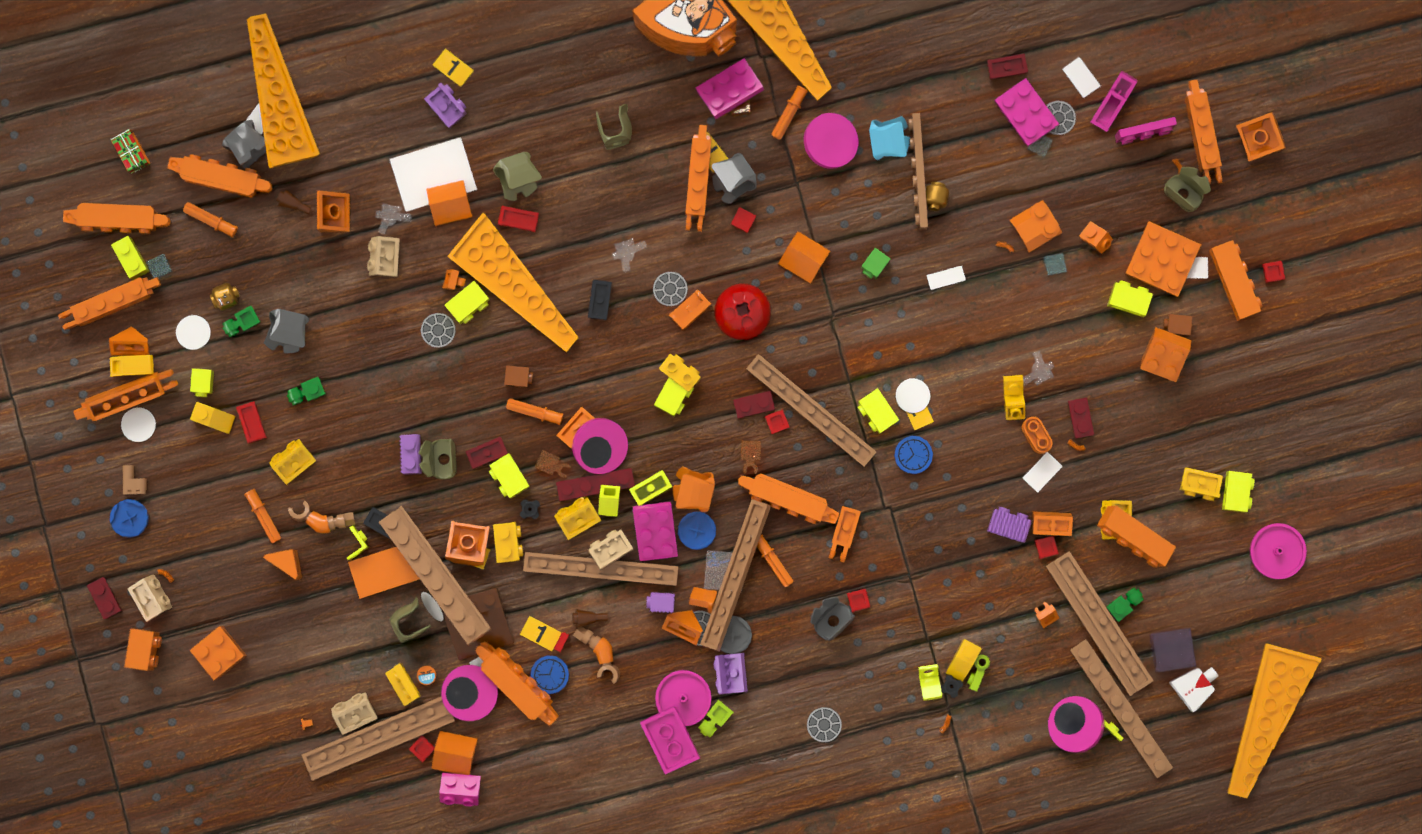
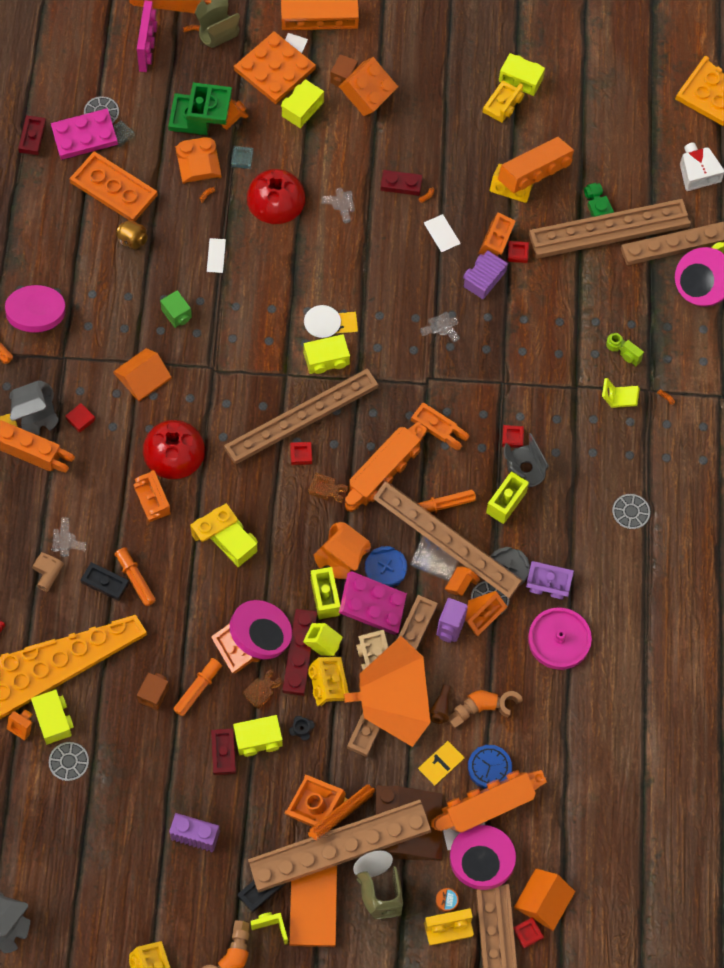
camera: 75 degrees left, 20 degrees down
(311, 389) = (79, 921): green plate -> none
(431, 453) = (206, 788): olive piece -> none
(455, 563) = (341, 812): none -> orange axle
(460, 789) = (587, 905): bracket -> none
(507, 543) = (329, 762): yellow bracket -> none
(561, 641) = (458, 740): red tile -> none
(578, 577) = (395, 692): none -> orange panel
(595, 250) = (49, 568): none -> medium nougat piece
(613, 323) = (135, 577): none -> orange axle
(670, 288) = (121, 511): sticker -> none
(670, 739) = (601, 663): dark pink plate -> none
(719, 714) = (590, 607): lime plate -> none
(754, 404) = (274, 469): dark red plate -> none
(792, 614) = (507, 497): none -> neon yellow brick
(889, 138) = (56, 254): medium azure piece -> none
(913, 454) = (382, 338): blue tile -> none
(918, 180) = (101, 241): medium nougat plate -> none
(945, 504) = (443, 325): none -> clear piece
(950, 681) = (632, 373): black plate -> none
(963, 660) = (606, 357): yellow slope -> none
(980, 160) = (113, 187): none -> orange plate
(1013, 397) = (359, 233): yellow slope -> none
(1019, 318) = (276, 196): none -> red piece
(1036, 435) = (404, 221): orange brick -> none
(1047, 615) = (587, 270): orange tile -> none
(1081, 77) = (71, 80): white sticker -> none
(1085, 209) = (196, 111): none -> green bracket
(1114, 101) = (105, 57): dark pink slope -> none
(1172, 650) = (657, 173): clear purple brick -> none
(1278, 551) = (590, 62): dark pink piece -> none

